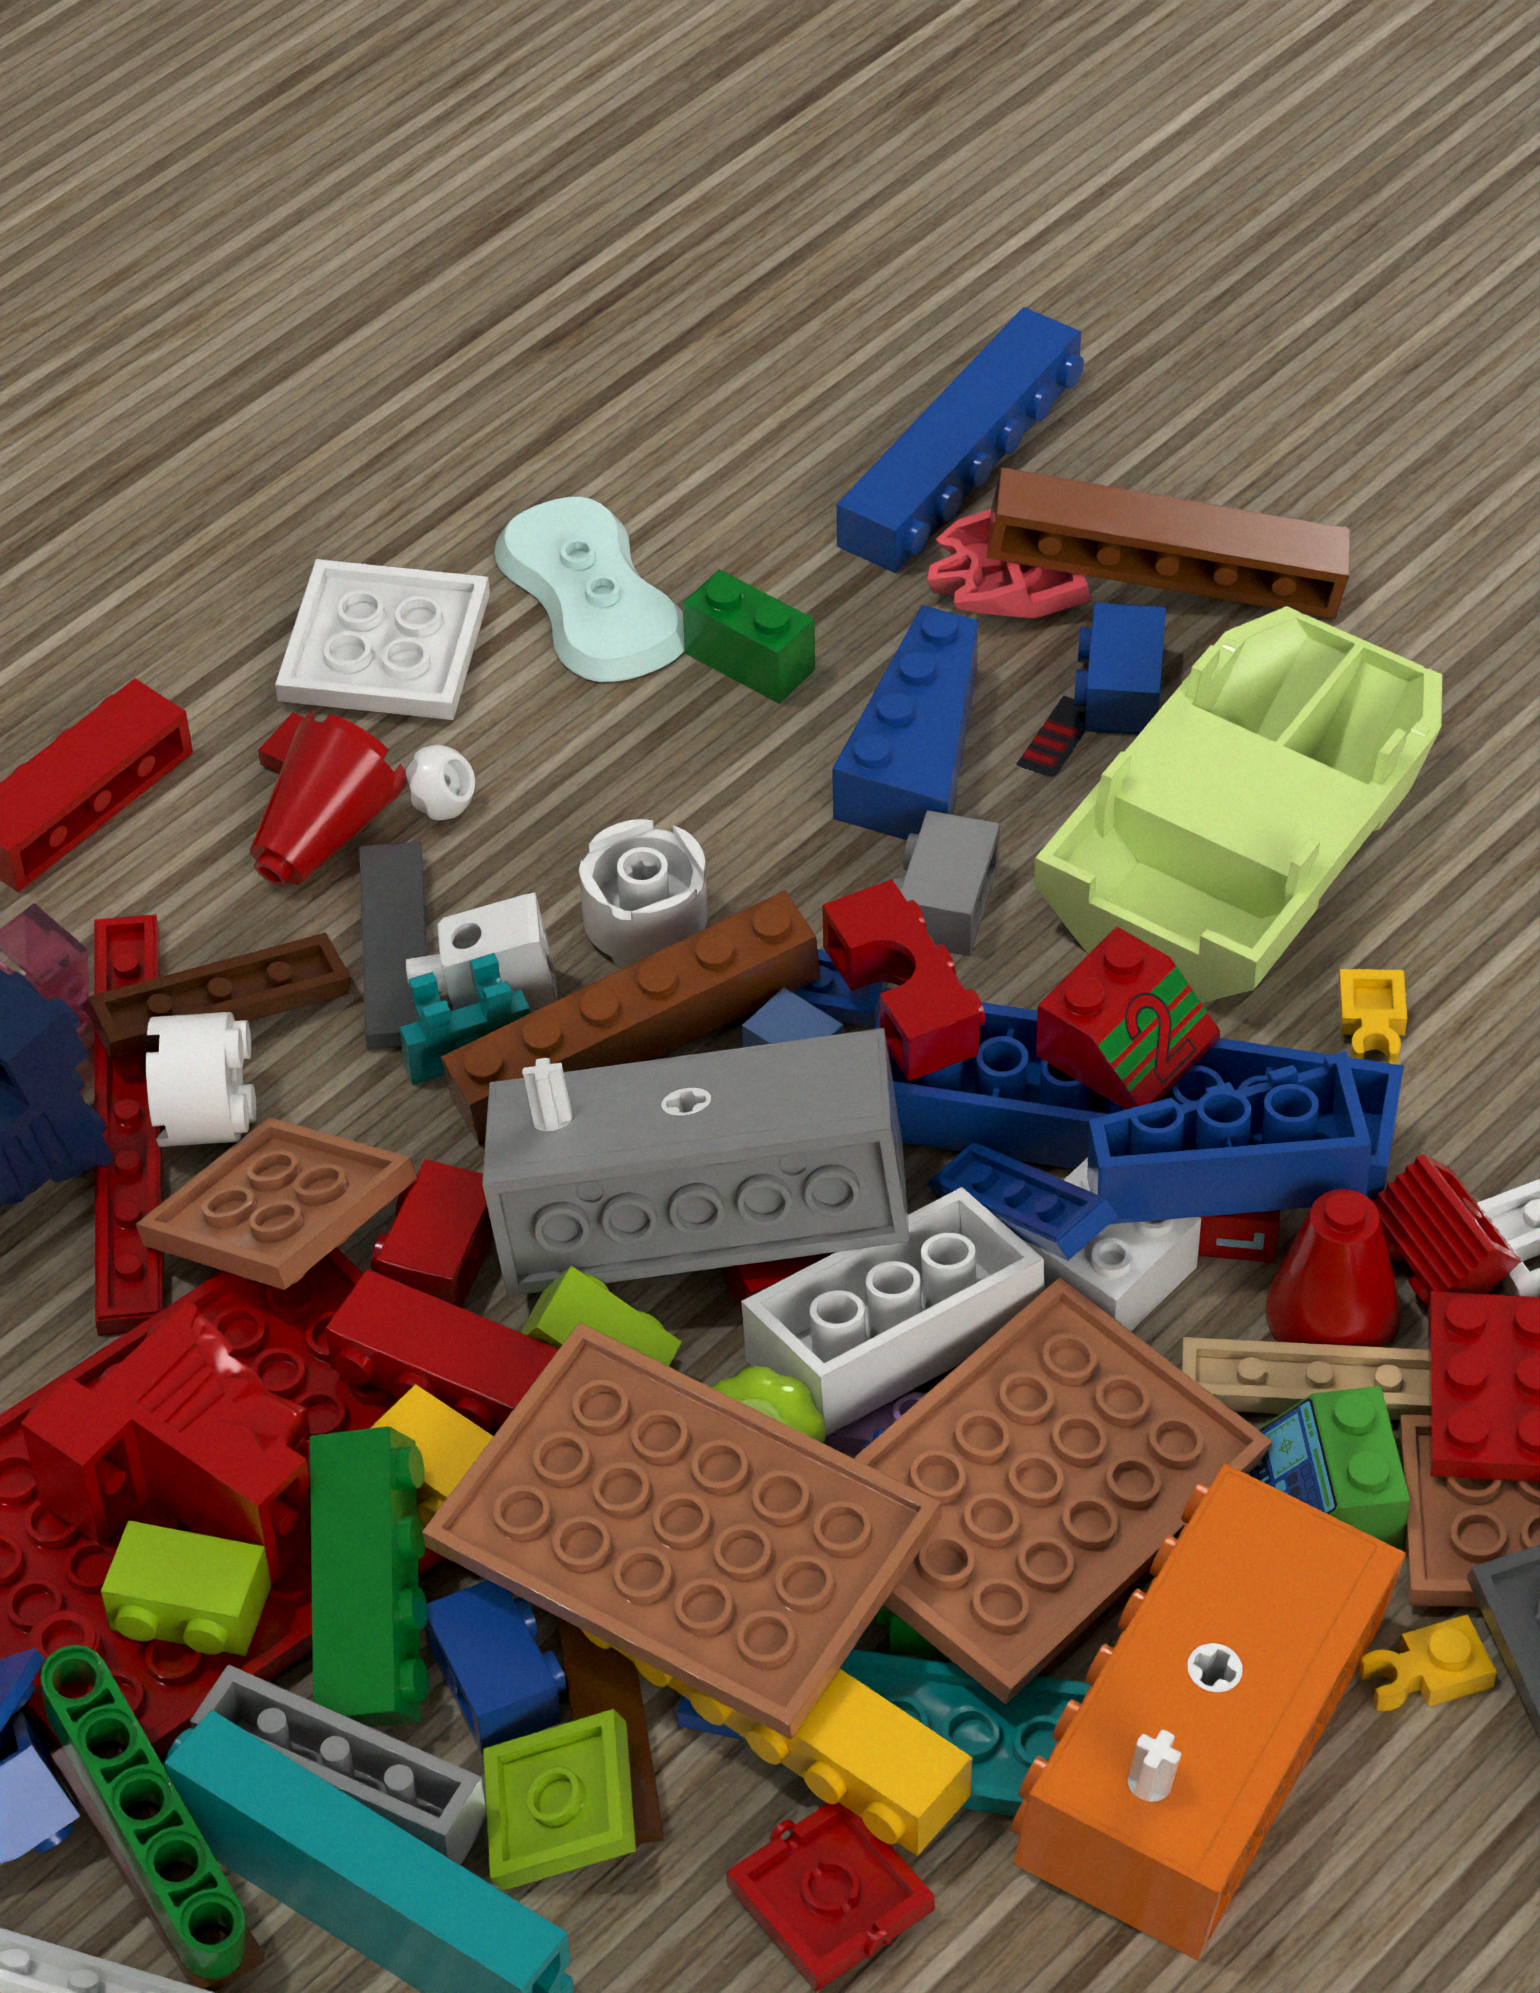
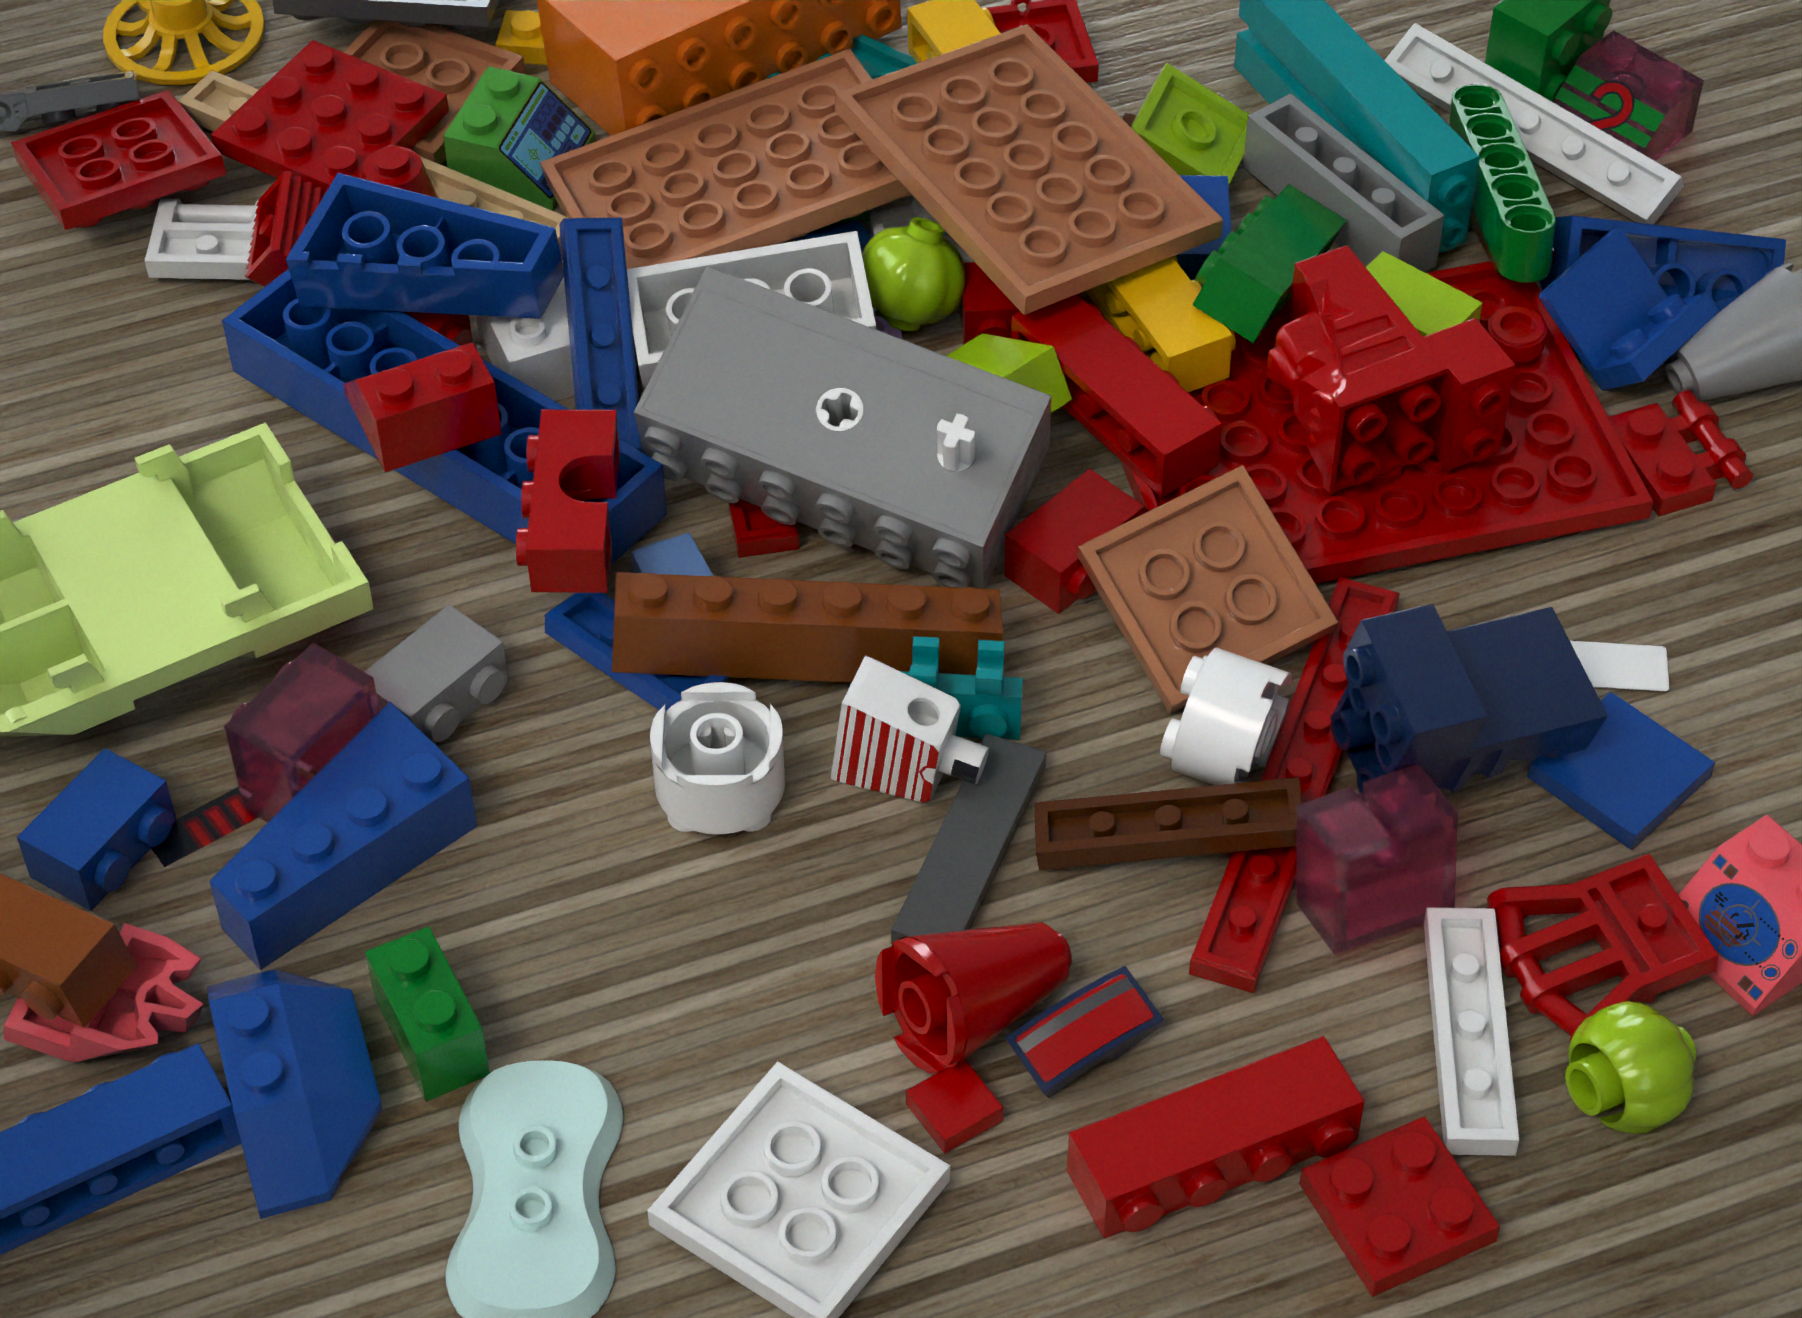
camera: 155 degrees left, 0 degrees up
(212, 824) = (1085, 1029): none -> slope
(440, 782) = (835, 970): white plate -> none
(836, 570) = (294, 1083): none -> blue wedge
(999, 752) = (297, 721): none -> clear pink piece
(1373, 1010) = (185, 432): yellow plate -> none

